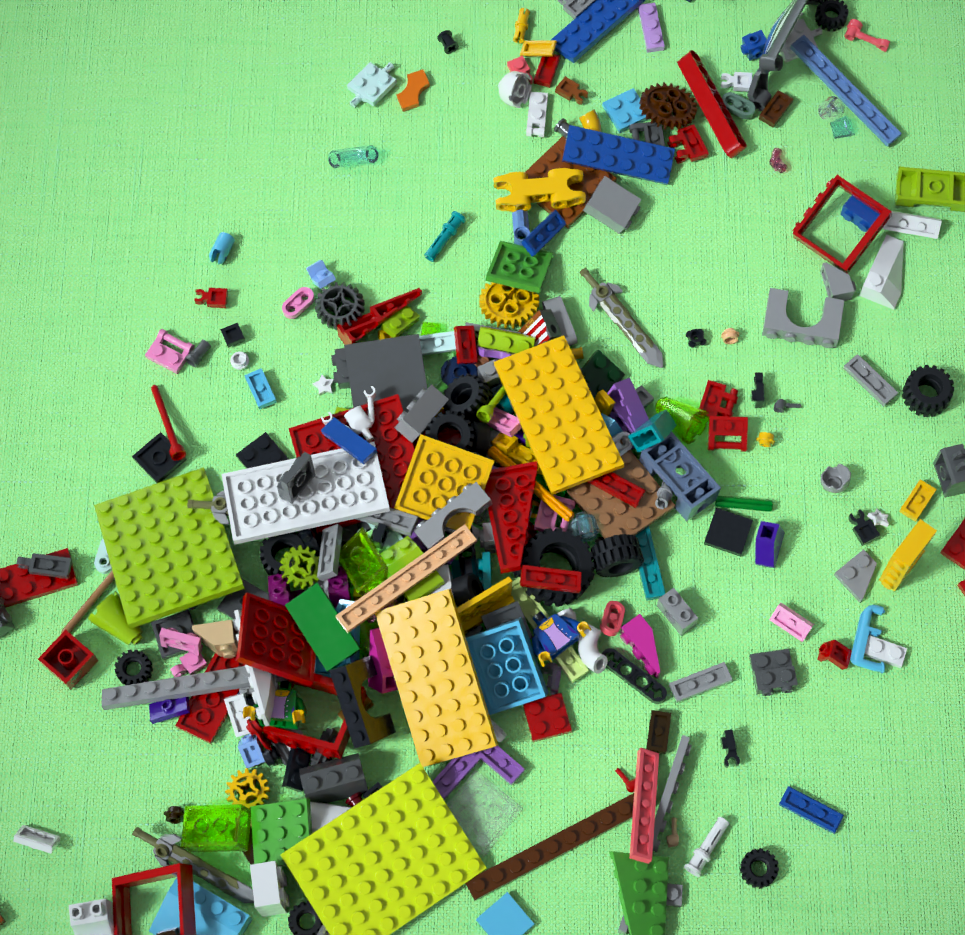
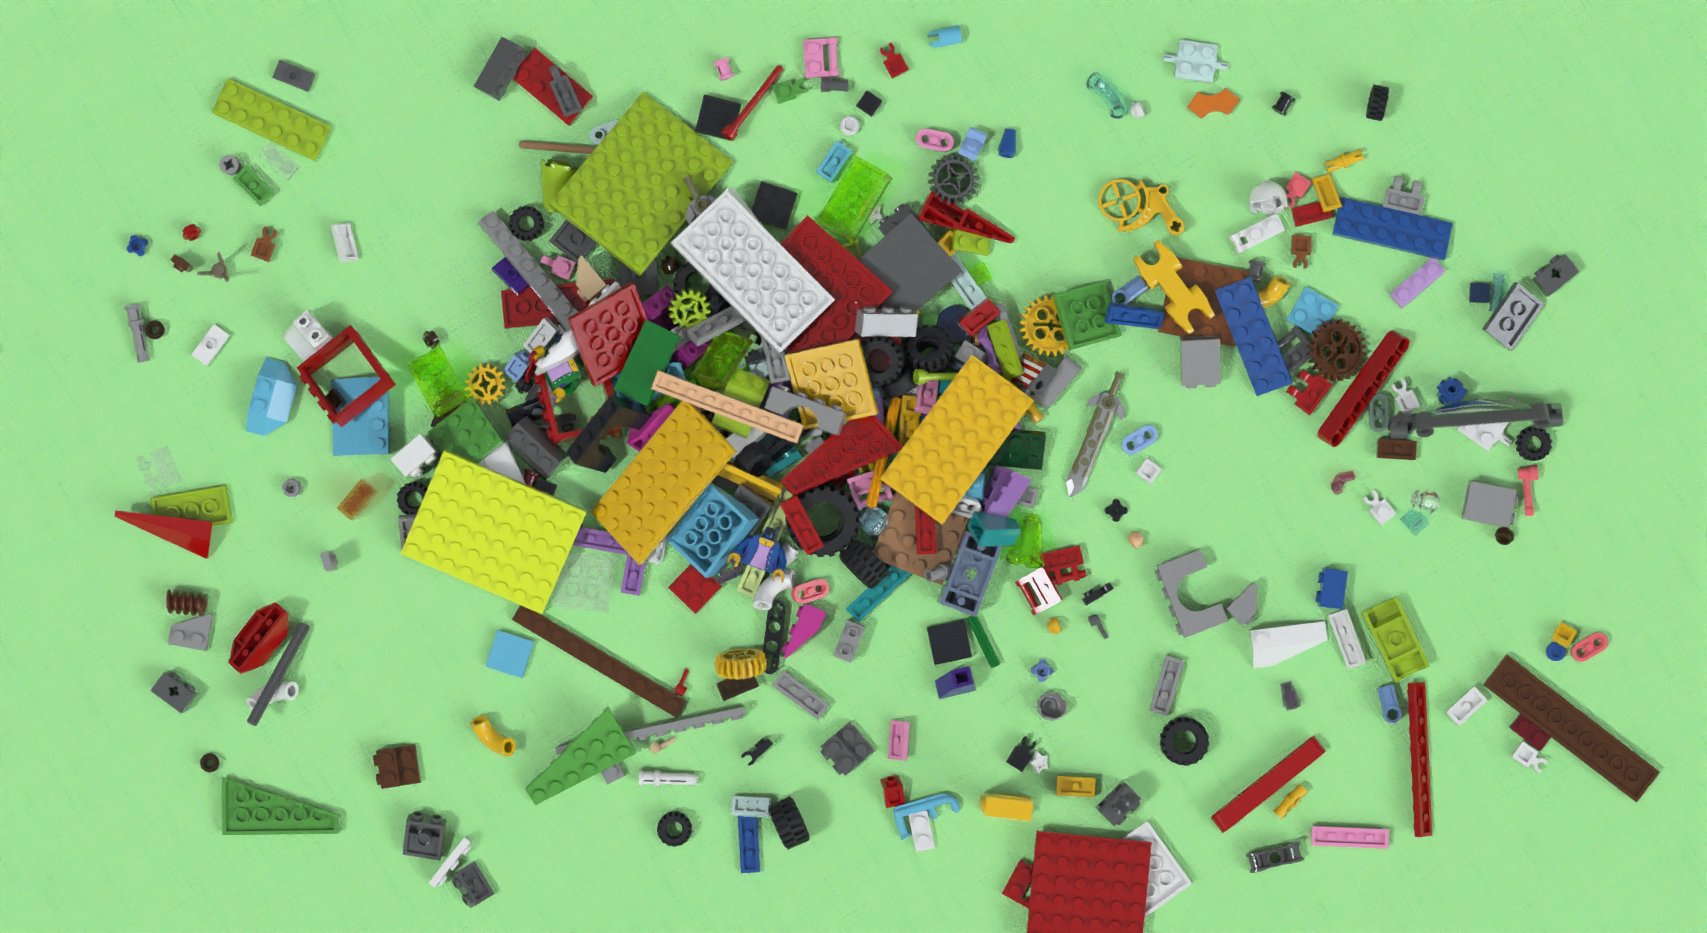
camera: 60 degrees right, 20 degrees up
(68, 659) = (499, 166): red brick -> none
(122, 429) = (724, 69): none -> bright pink bush
(166, 850) = (400, 352): sword -> none
(175, 639) = (570, 258): bright pink plate -> none
(177, 393) = (786, 91): none -> bright green plate
(253, 569) = (670, 265): none -> dark brown plate
(297, 478) = (754, 261): dark grey plate -> none
(301, 385) = (854, 199): none -> clear neon green brick
(340, 251) = (1007, 145): none -> blue cone
(349, 441) = (821, 278): blue tile -> none
(358, 419) = (847, 271): white piece -> none
(380, 143) = (1137, 110): none -> white plate
(449, 230) = (1089, 228): teal pin -> none
(462, 170) = (1154, 204): none -> yellow piece
(604, 402) = (996, 469): yellow plate -> none
(641, 712) = (740, 663): none -> yellow gear
(644, 806) = (665, 710): coral plate -> none
(648, 288) = (1139, 439): none -> light blue plate
(678, 296) = (1148, 471): none -> white tile
(777, 786) = (750, 806): none -> light aqua plate
(802, 466) = (1042, 675): none -> medium blue plate
(814, 756) = (788, 823): none -> black tyre
(818, 147) = (1380, 509): none -> white plate
(821, 199) = (1300, 544): red window -> none
(845, 90) = (1452, 503): medium blue plate -> none
(857, 574) = (977, 771): light grey wing -> none
(864, 66) = (1489, 504): none -> light grey brick
(894, 70) = (1504, 536): none -> dark brown plate
(935, 292) = (1289, 696): none -> cone

